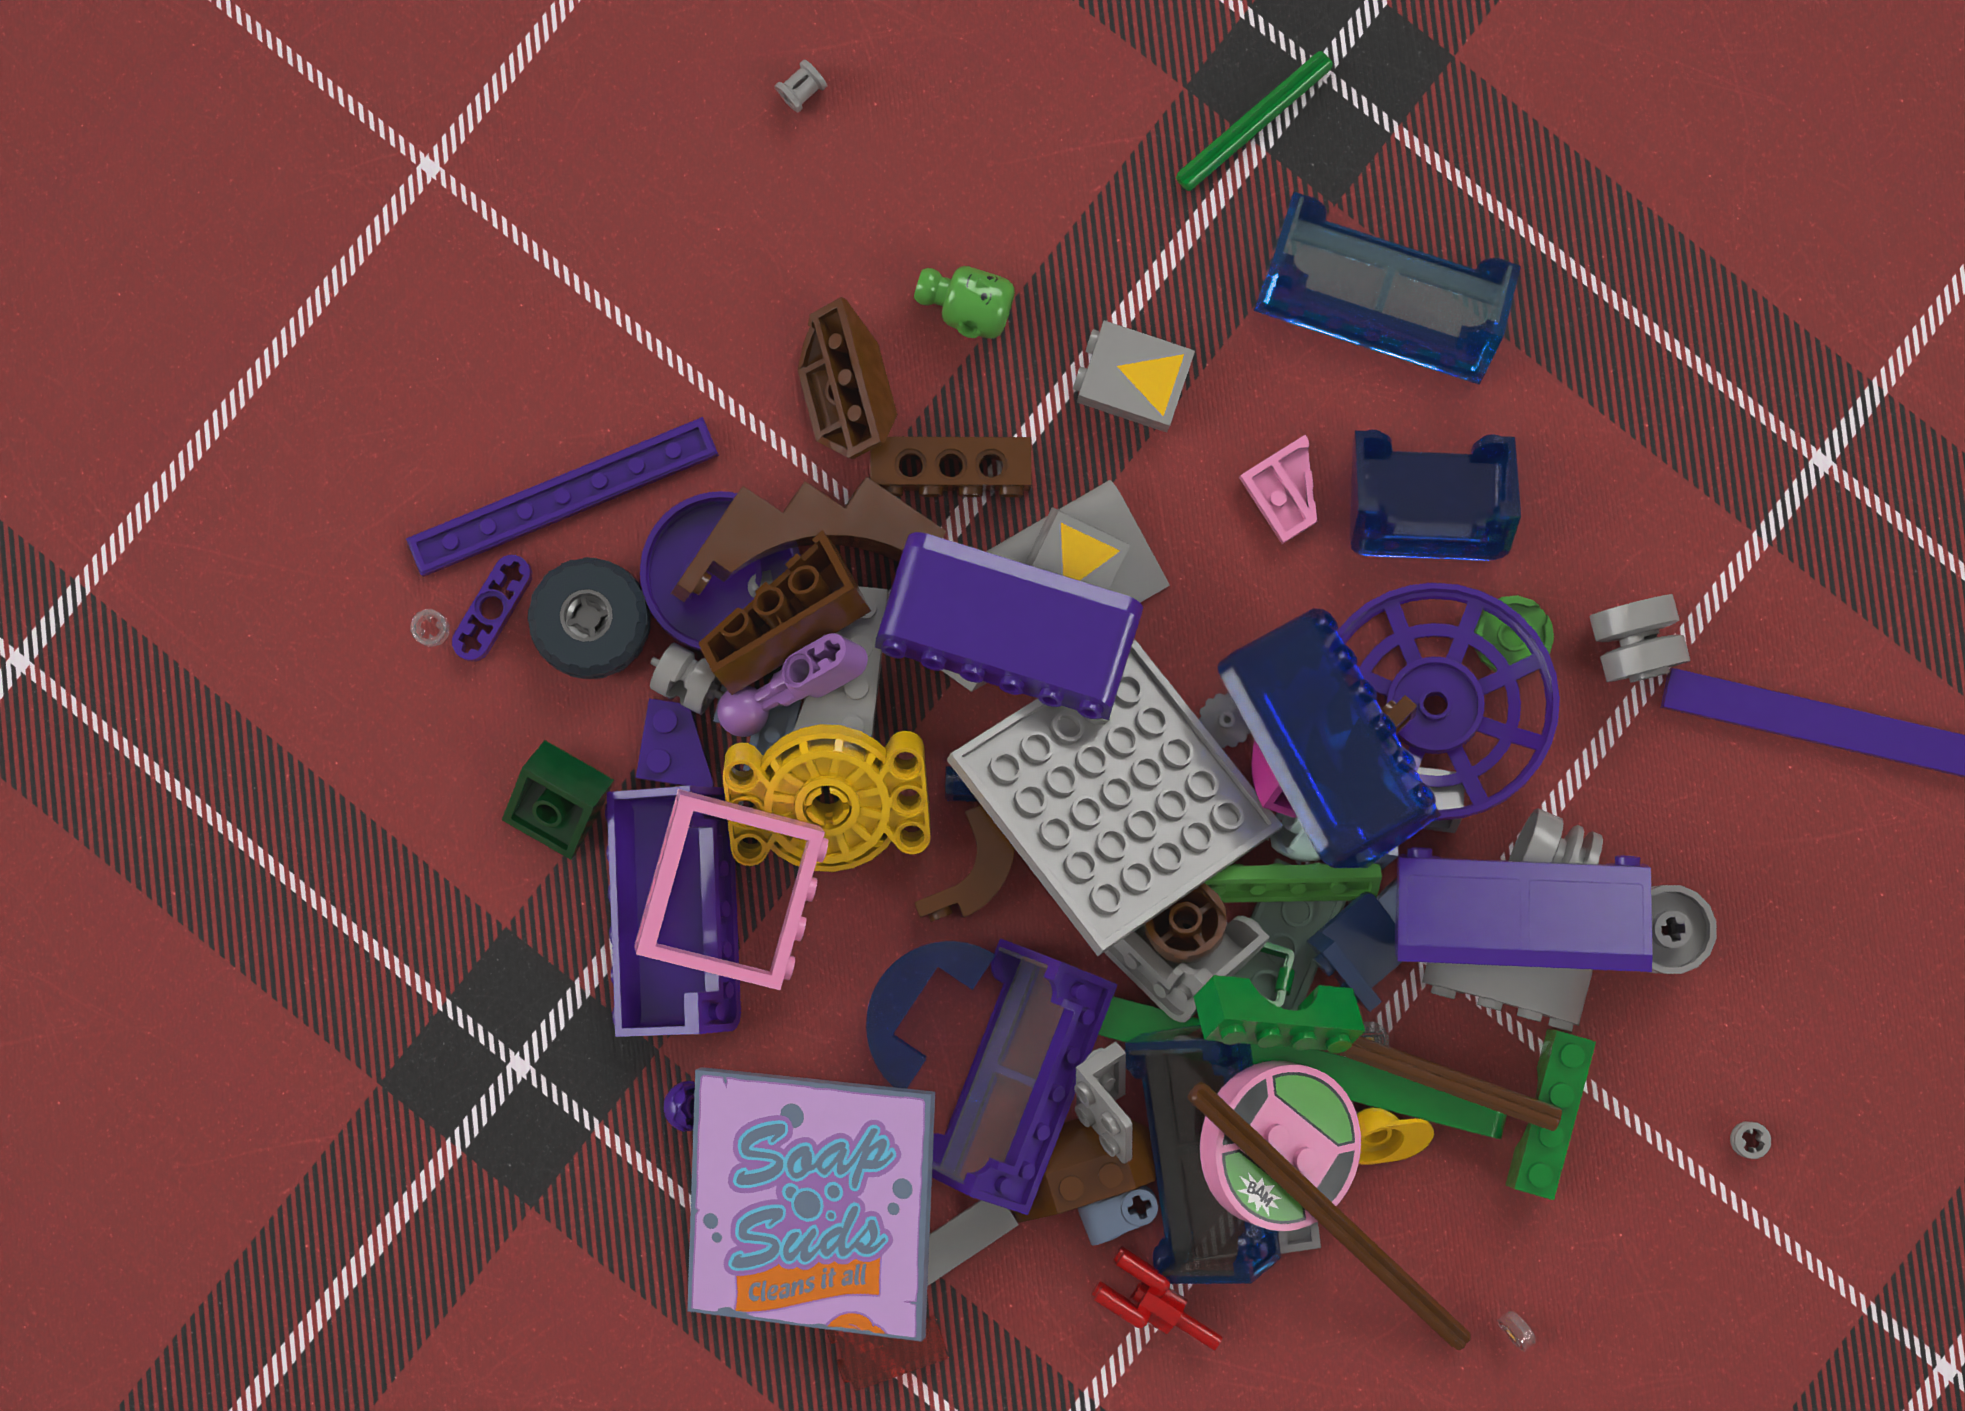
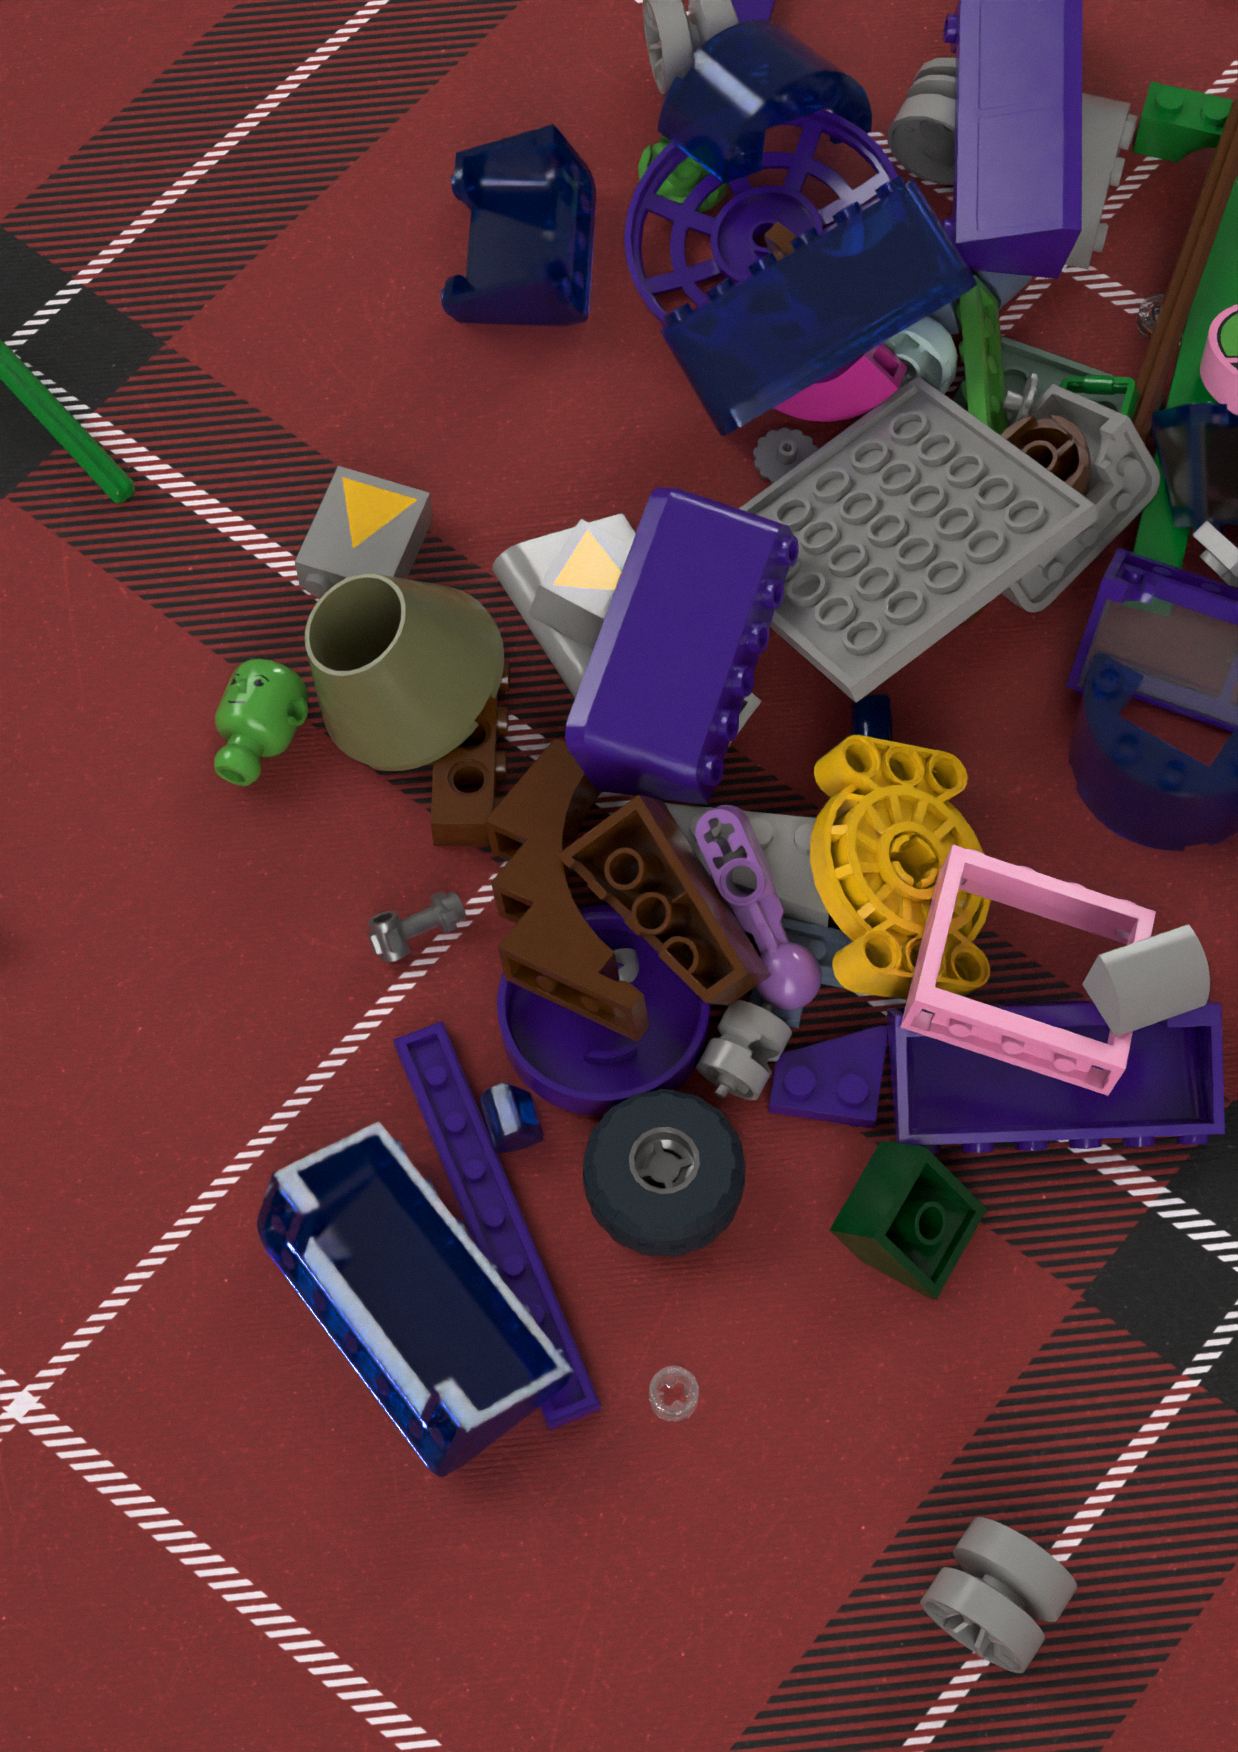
camera: 80 degrees left, 20 degrees down
(275, 854) = (999, 1594): none -> light grey wheel
(493, 437) = (408, 1297): none -> clear blue windscreen
(516, 587) = (604, 1303): dark purple beam -> none
(638, 506) = (510, 1117): none -> clear blue brick
(704, 977) = (1149, 980): none -> light grey brick
(785, 411) = (390, 934): none -> flat silver bar
(845, 382) = (362, 858): reddish brown wedge -> none
(986, 877) = (975, 700): reddish brown arch -> none
(1001, 438) = (401, 668): none -> olive cone
(1237, 1013) = (1157, 377): green arch -> none
(1258, 911) = (1021, 403): none -> light grey piece
(1284, 490) = (510, 389): bright pink wing -> none
(1358, 948) = (1057, 317): dark blue bracket -> none
(1386, 294) = (279, 282): windscreen -> none
(1564, 692) = (748, 83): none -> clear blue cylinder

